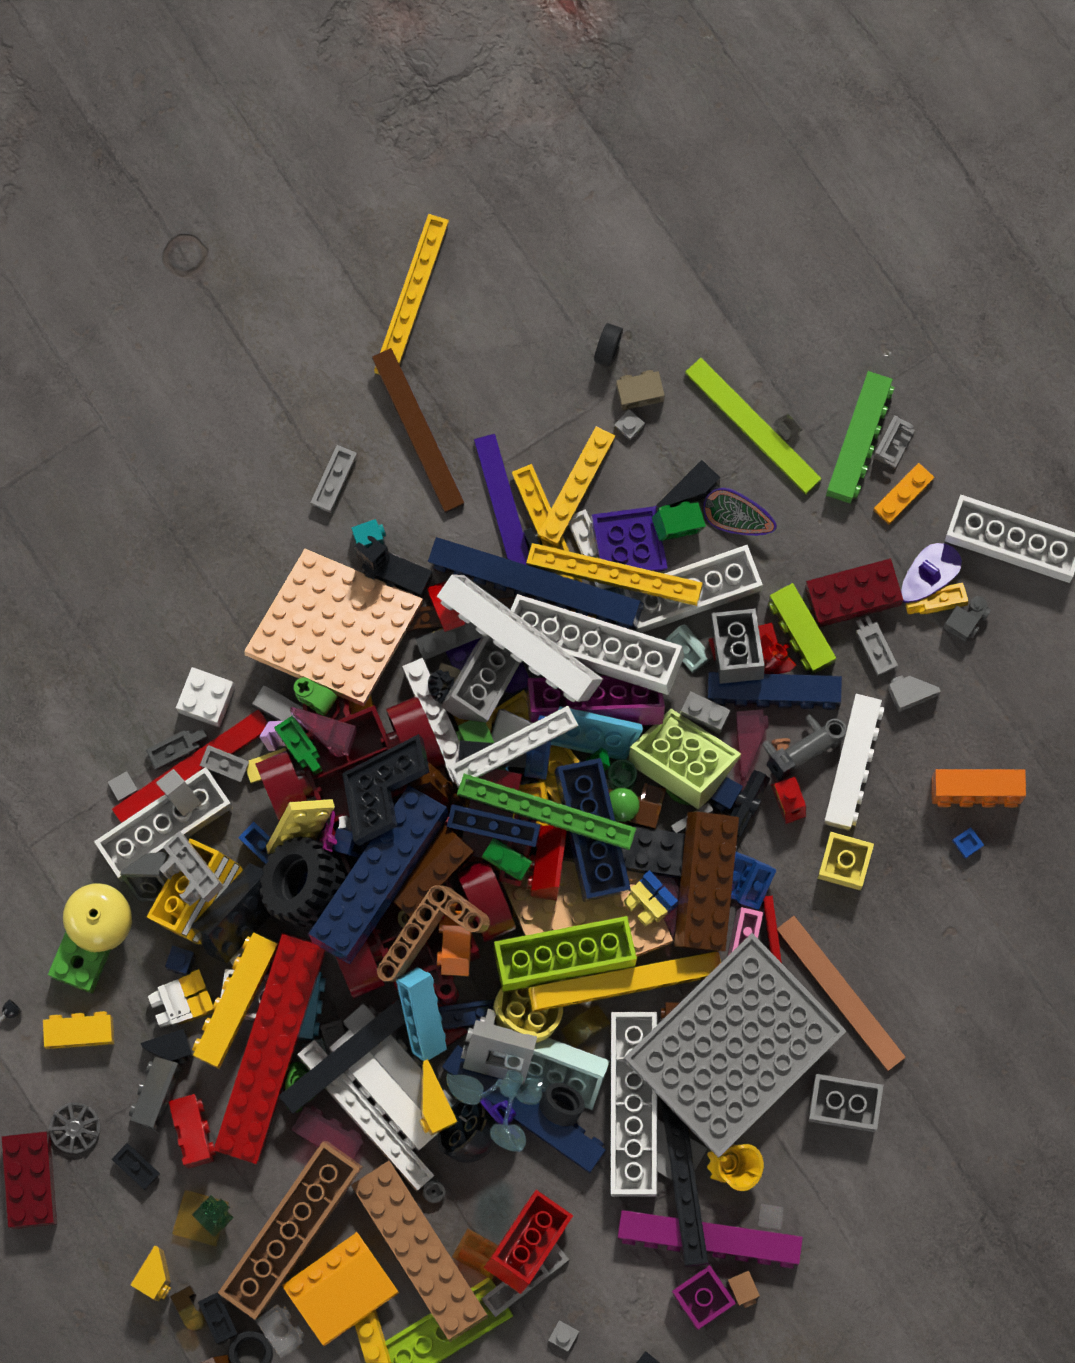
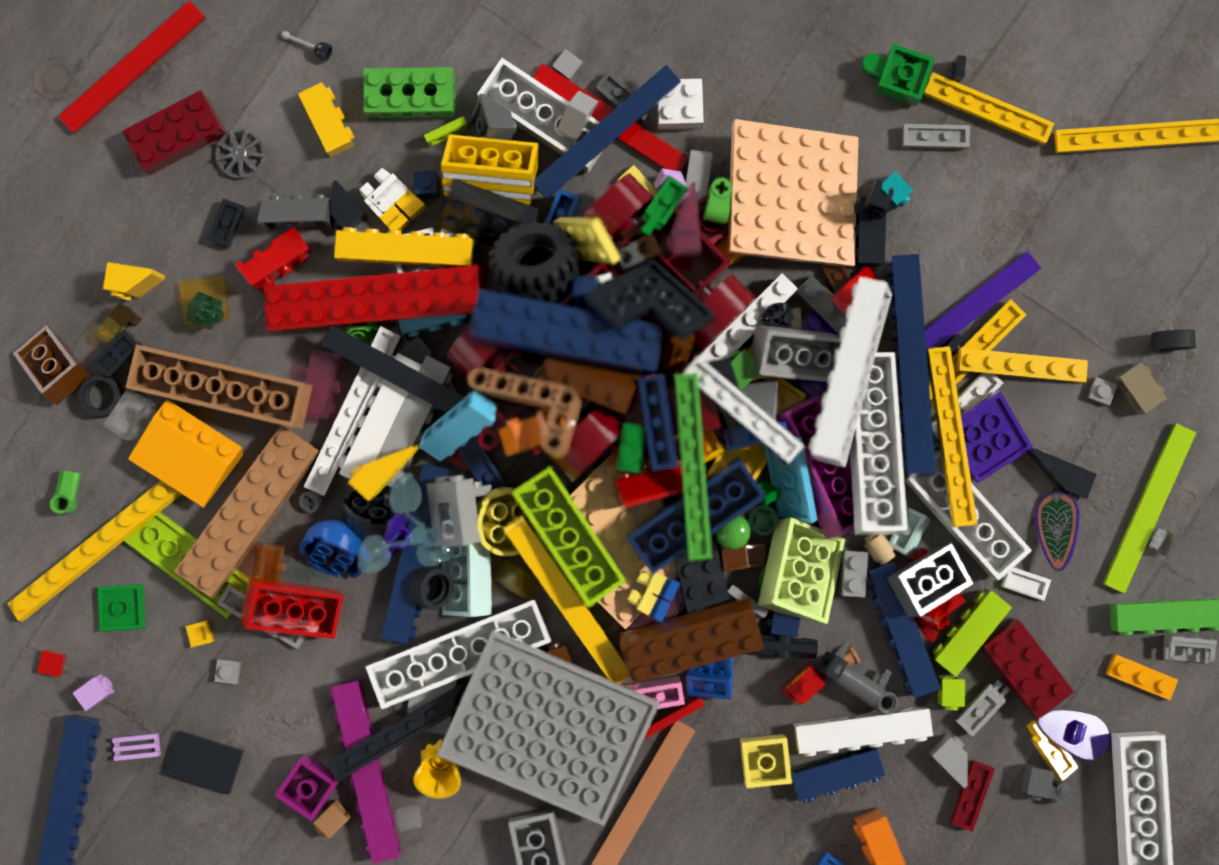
camera: 60 degrees right, 10 degrees up
(104, 930) = (430, 89): light yellow cylinder -> none
(138, 923) = (442, 133): none -> lime tile
(186, 859) = (513, 146): light grey hinge -> none
(205, 772) = (606, 132): none -> dark blue tile
(224, 763) = (625, 150): light grey plate -> none
(263, 487) = (900, 74): none -> green brick
(281, 434) = (958, 68): none -> black tile
(326, 835) = (586, 267): magenta piece -> none
(328, 422) = (988, 108): none -> yellow plate
(332, 781) = (639, 252): none -> leg
(418, 430) = (1015, 194): reddish brown tile -> none
(483, 1174) = (330, 537): none -> blue cylinder
(517, 1349) = (199, 633): none -> yellow tile
(678, 521) = (1028, 475): green brick -> none
(691, 680) = (879, 548): none -> tan brick
(750, 732) = (849, 623): clear pink slope -> none
(777, 562) = (1026, 583): none -> white tile
(850, 668) = (951, 692): none -> lime brick
(884, 801) = (837, 773): none -> dark blue brick
(952, 687) = (972, 796): none -> dark red plate

